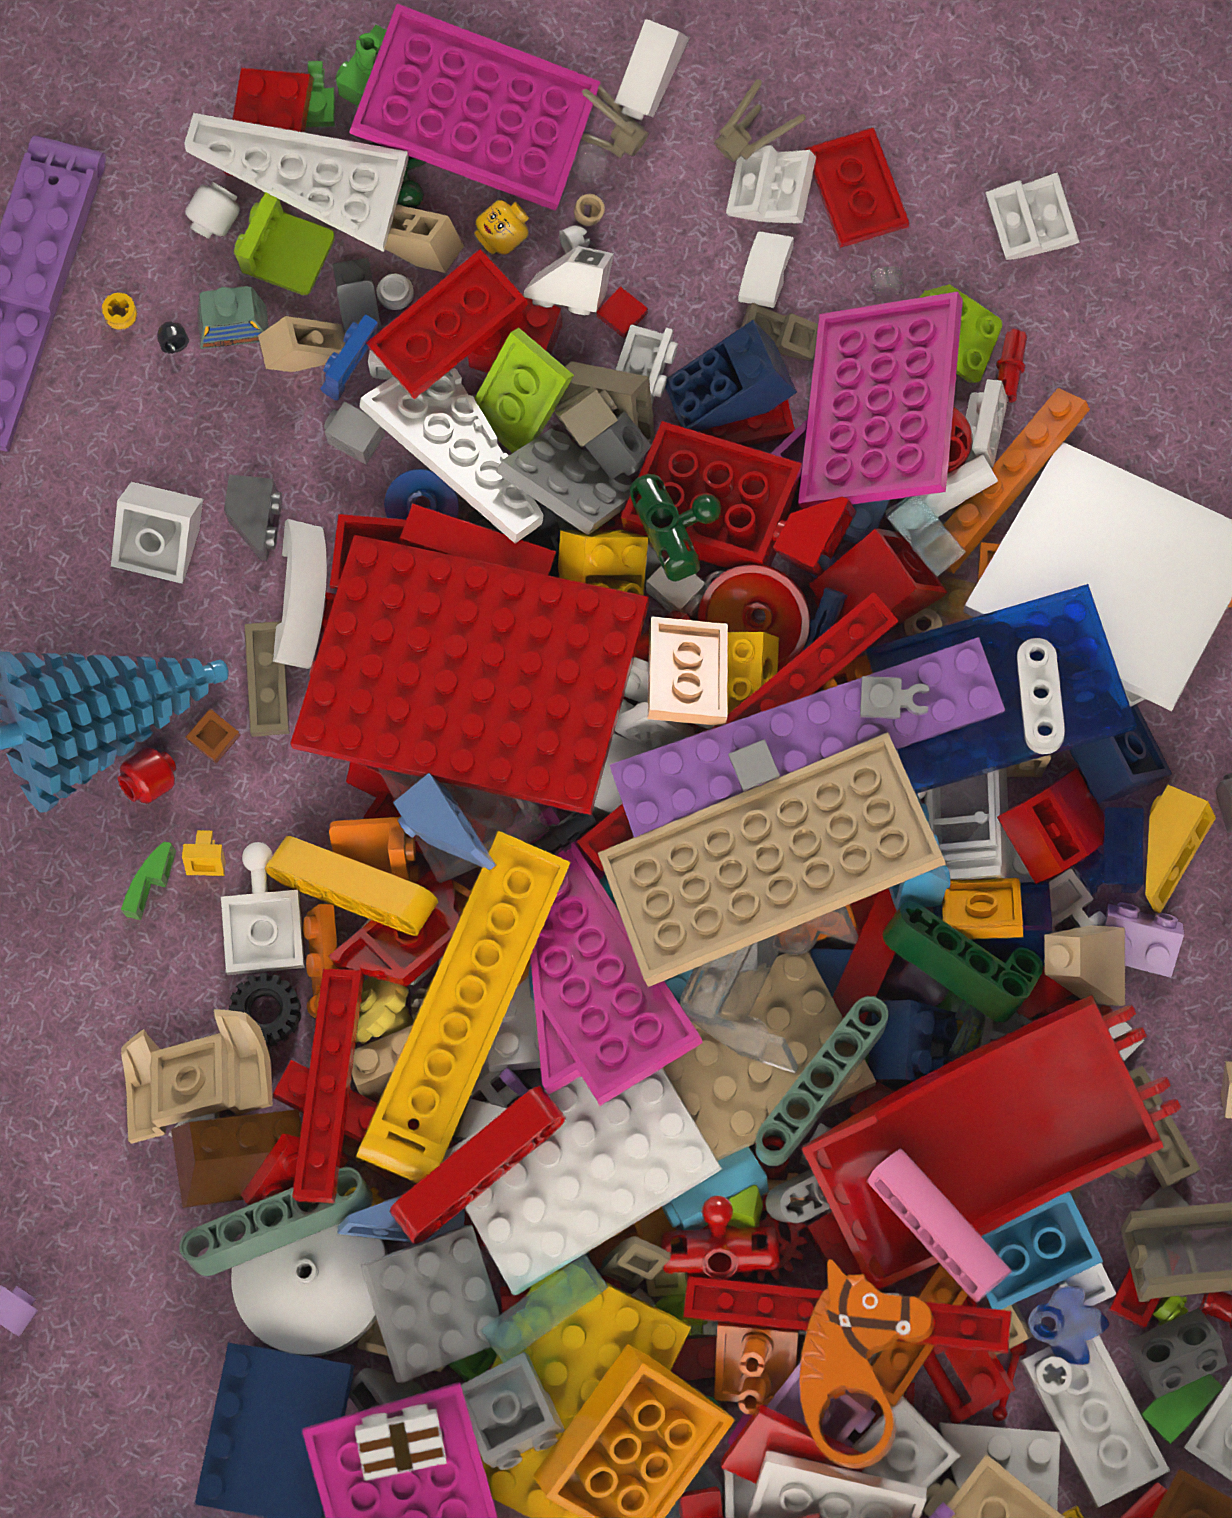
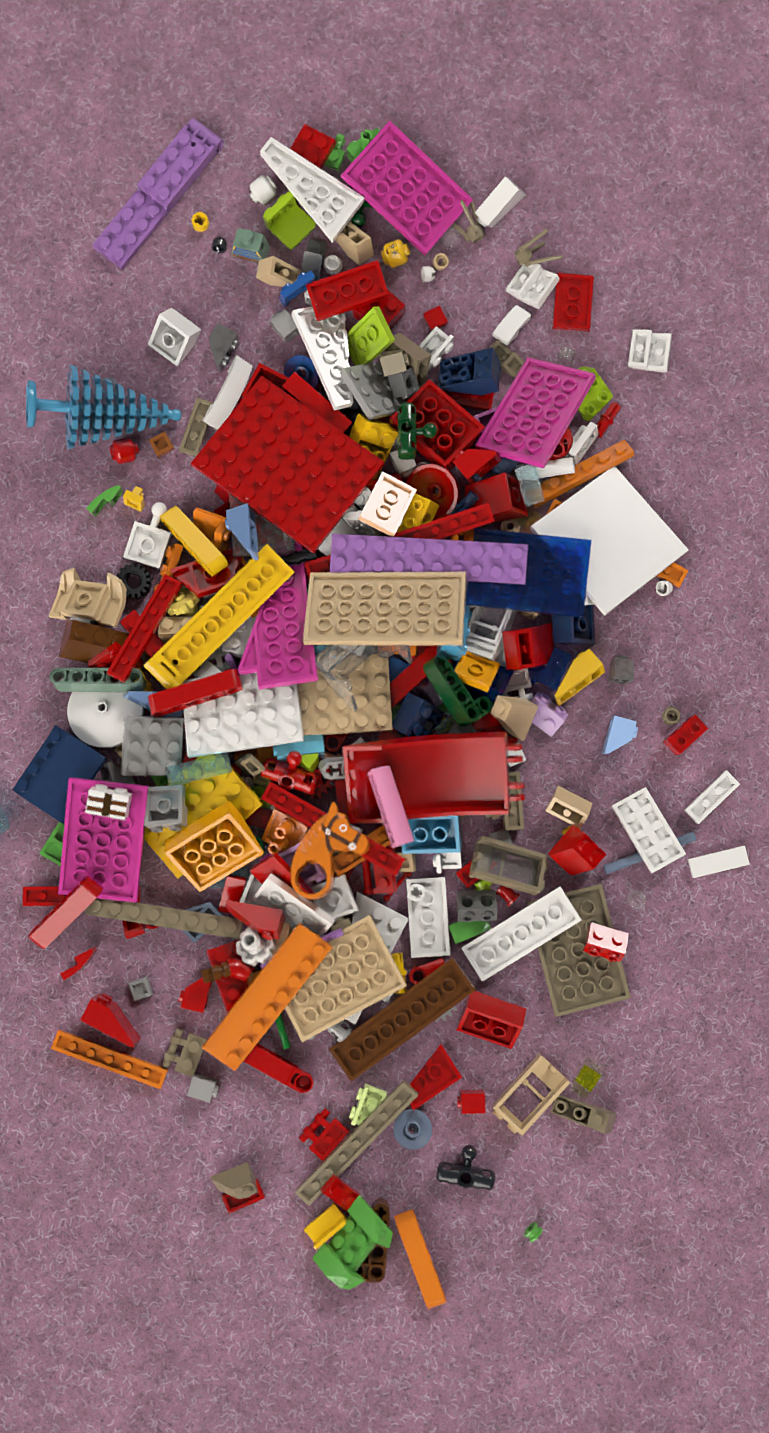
camera: 20 degrees right, 10 degrees up
(573, 281) = (417, 294): white slope -> none
(754, 765) = (396, 561): light grey tile -> none
(826, 1062) = (372, 712): sand green beam -> none
(884, 697) = (471, 555): light grey plate -> none
(1038, 711) = (541, 591): white plate -> none
(1073, 1324) = (435, 875): clear blue plate -> none

